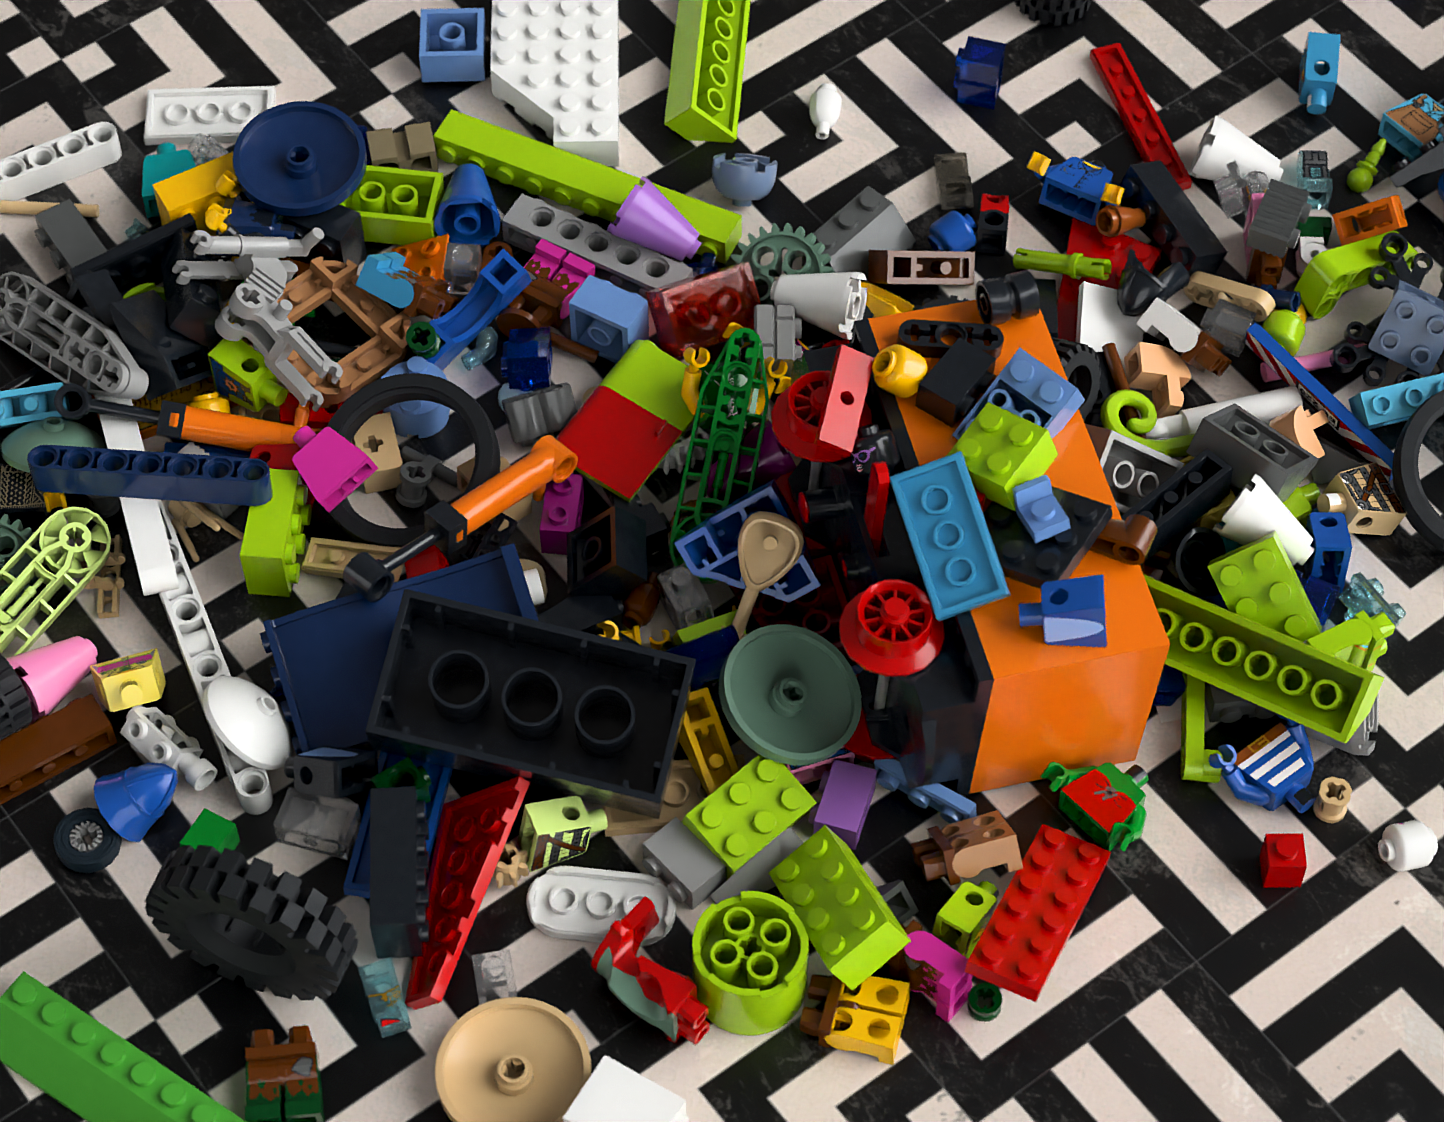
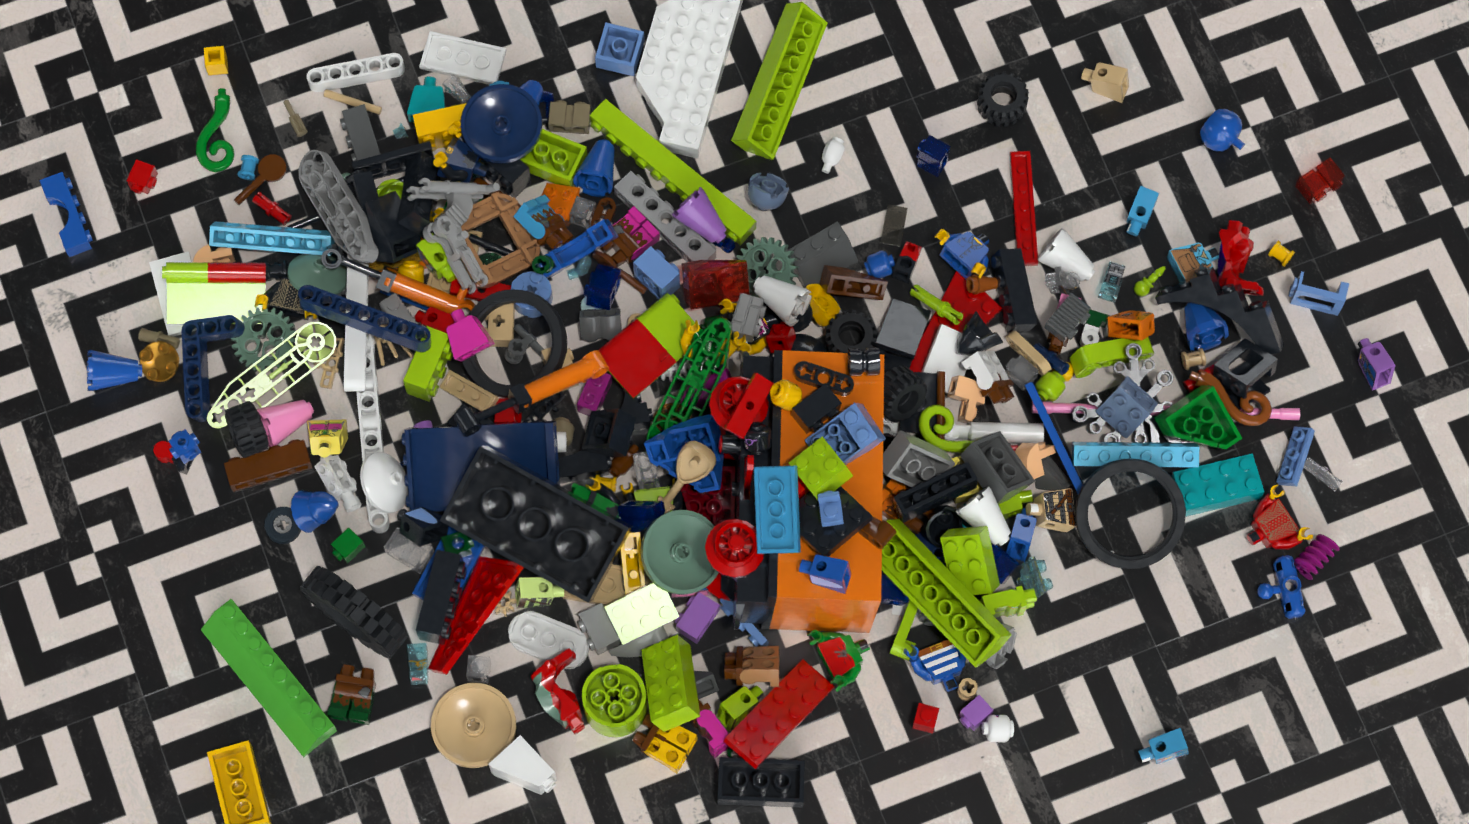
camera: 15 degrees right, 15 degrees up
(1061, 1034) = (771, 784): none -> black brick
(1361, 832) = (975, 713): none -> medium lavender brick

